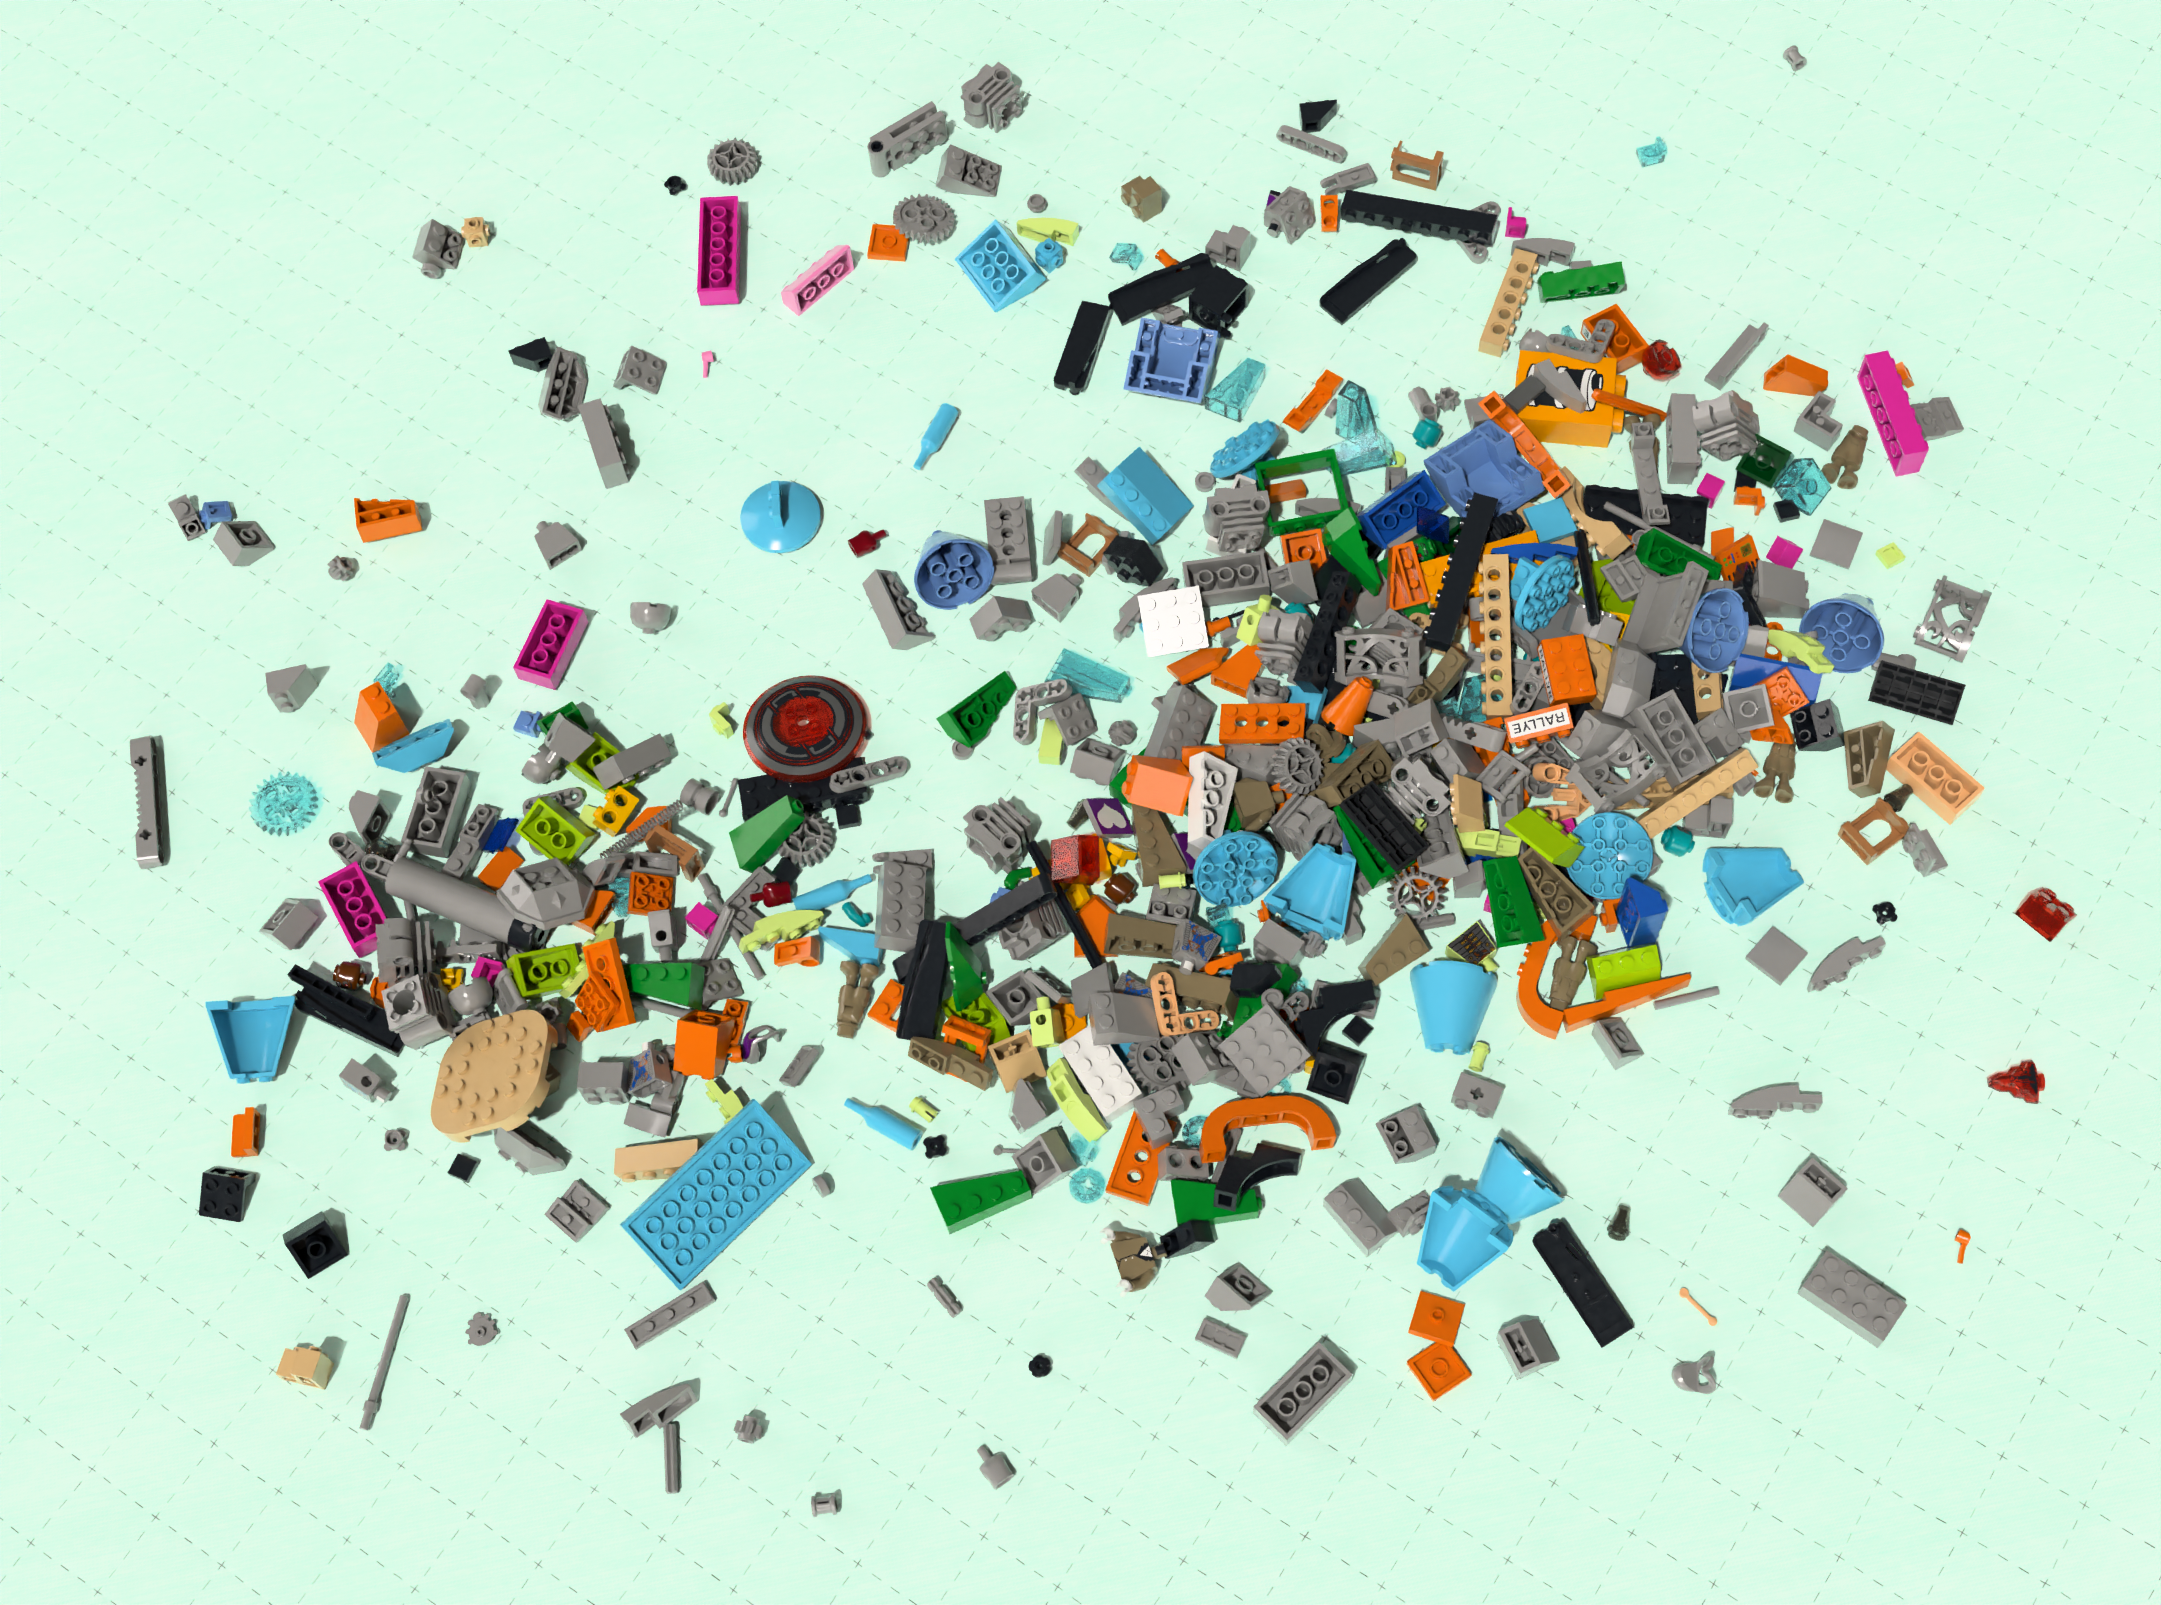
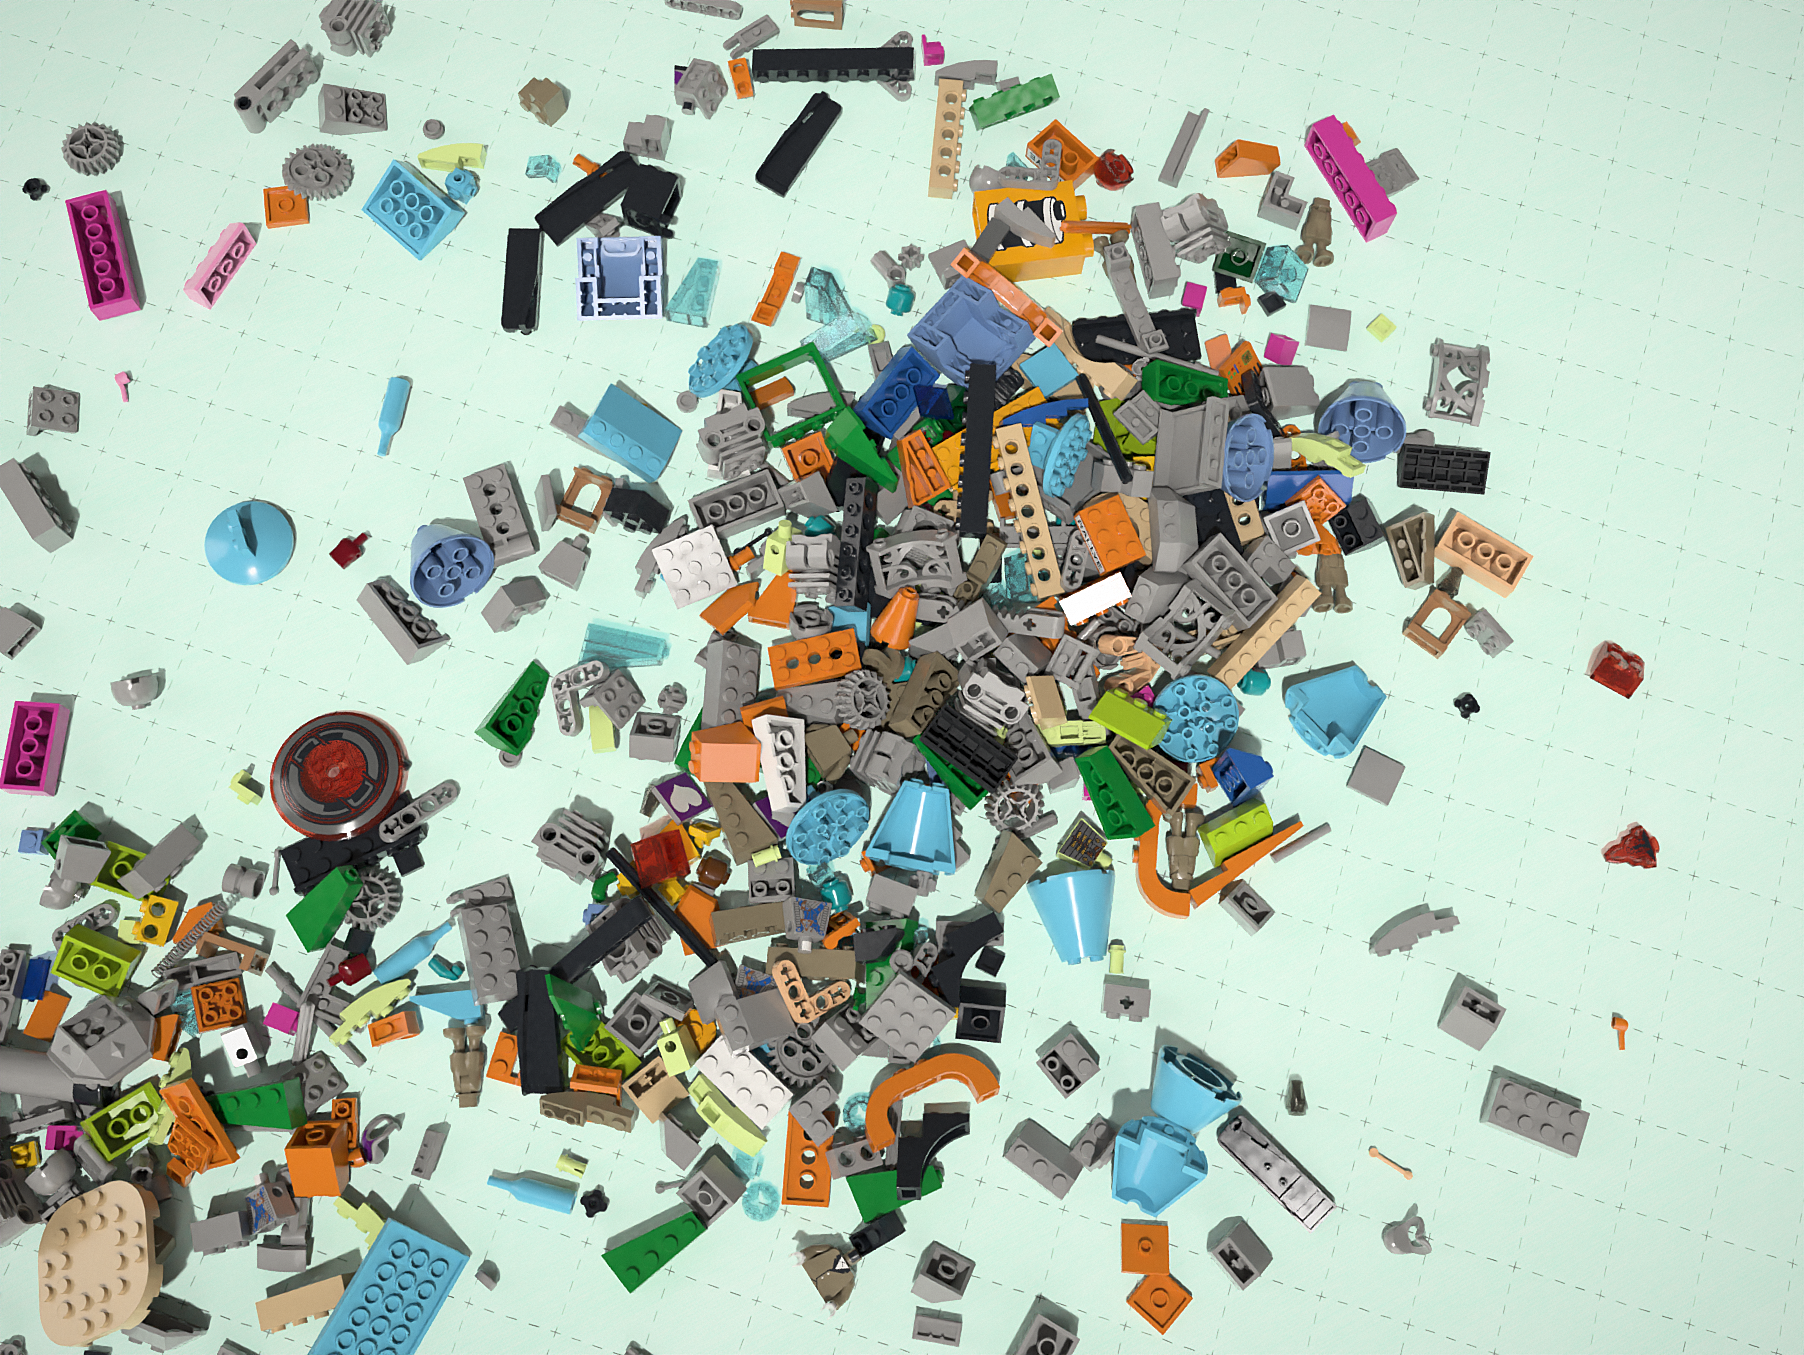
camera: 25 degrees left, 10 degrees up
(1841, 961) = (1438, 770): light grey slope -> none

